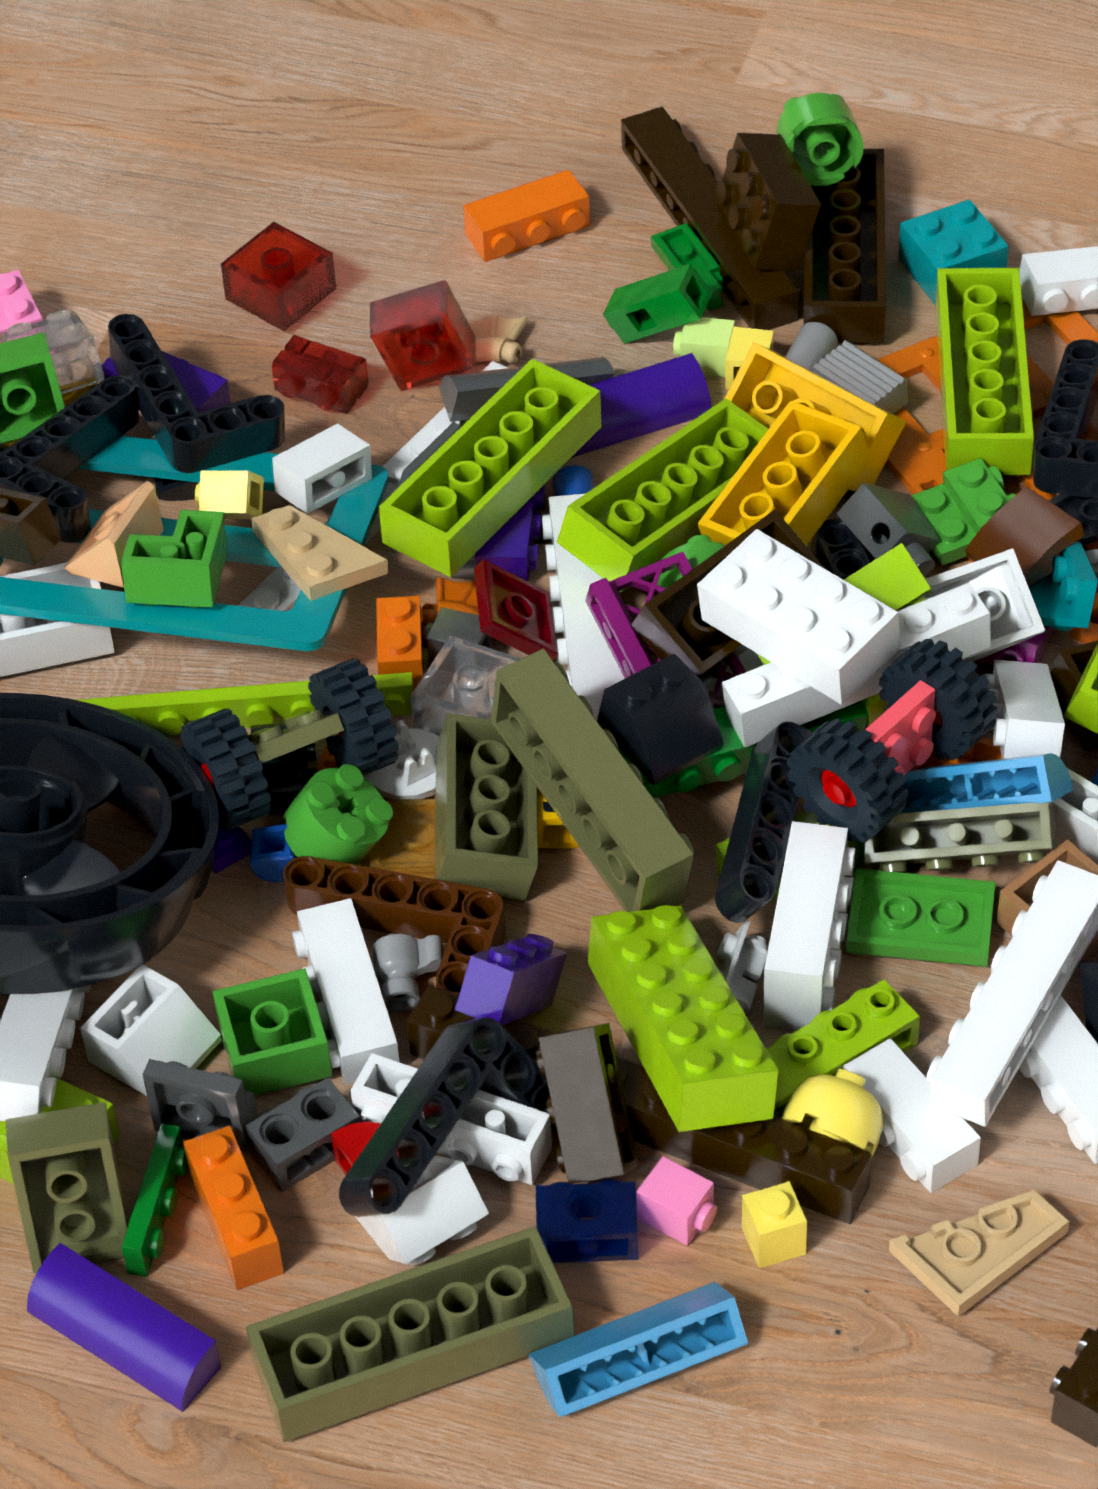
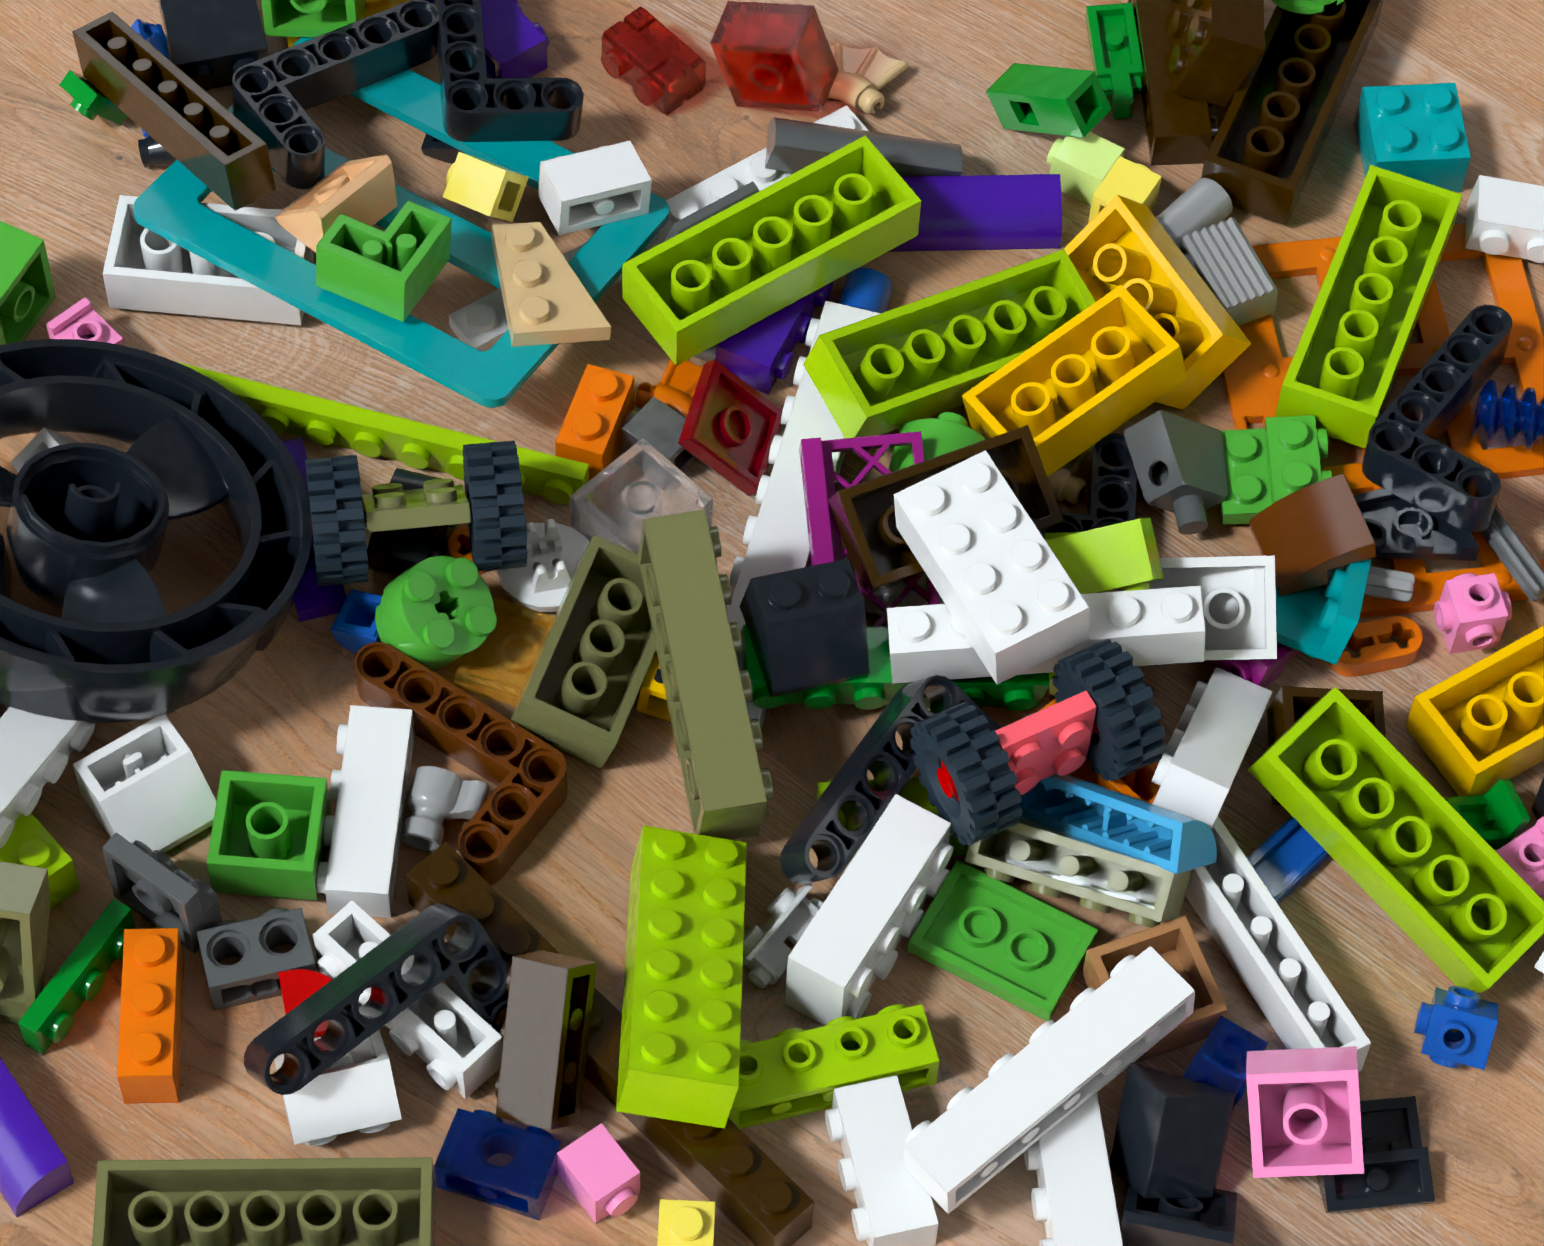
camera: 15 degrees right, 10 degrees up
(512, 979) = (528, 869): dark purple brick -> none
(837, 1109) = (800, 1141): light yellow cylinder -> none

